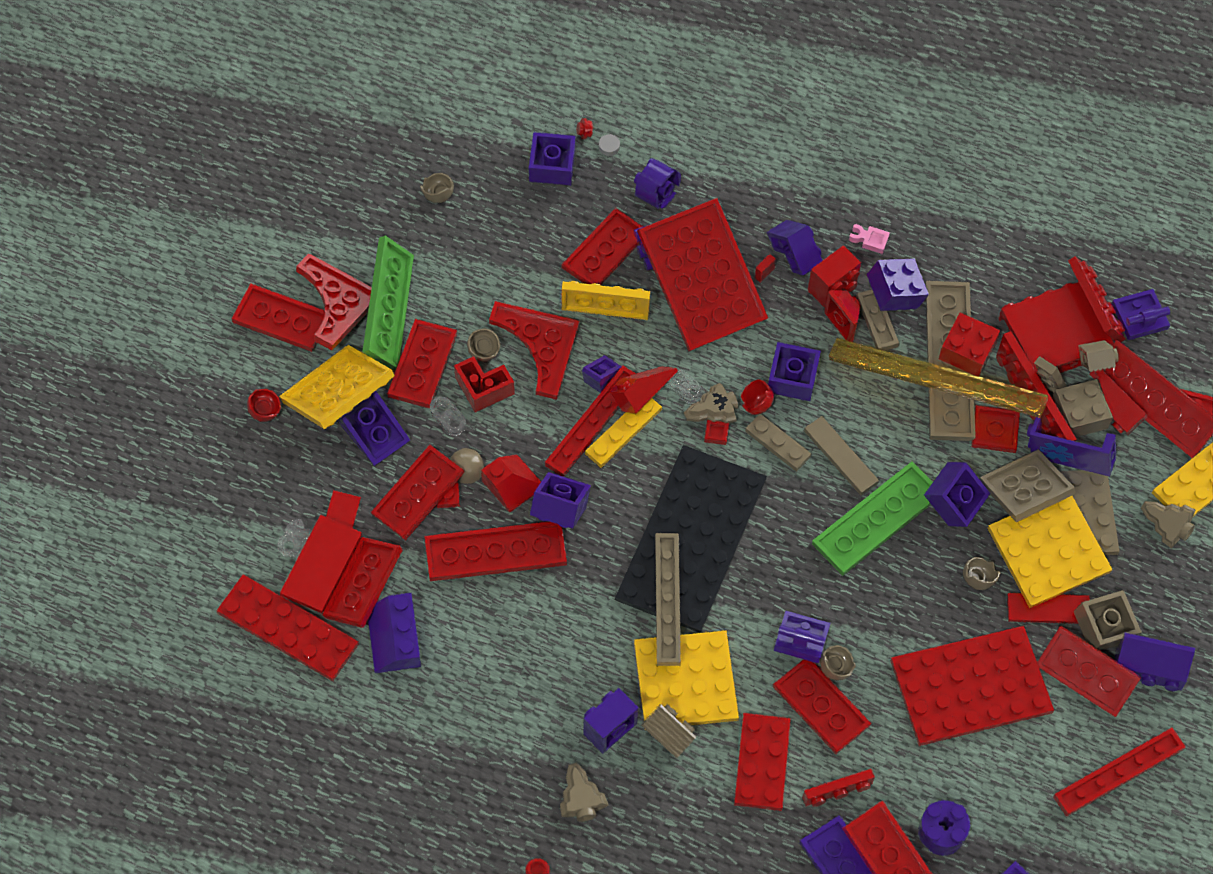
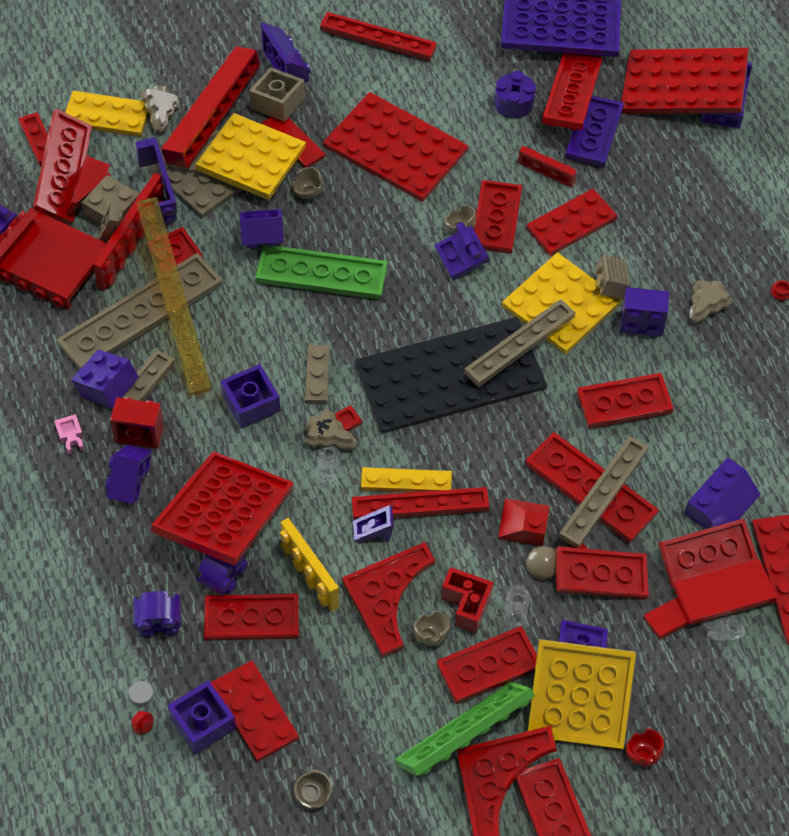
camera: 130 degrees left, 5 degrees down
(478, 545) = (603, 492): none -> dark tan plate
(531, 200) = (255, 711): none -> red plate
(547, 643) = (625, 400): none -> red plate
(560, 500) = (514, 463): dark purple brick -> none
(637, 389) = (358, 484): red slope -> none
(757, 397) = (296, 405): red hair -> none
(765, 268) = (167, 483): red tile -> none
(841, 455) = (289, 329): dark tan tile -> none
(843, 312) = (167, 392): red slope -> none
(969, 344) = (122, 294): red brick -> none
(1027, 485) = (215, 188): dark tan plate -> none
(1088, 671) = (324, 85): red tile -> none
(1098, 356) = (66, 201): dark tan brick -> none
(1134, 556) = (210, 107): none -> red brick

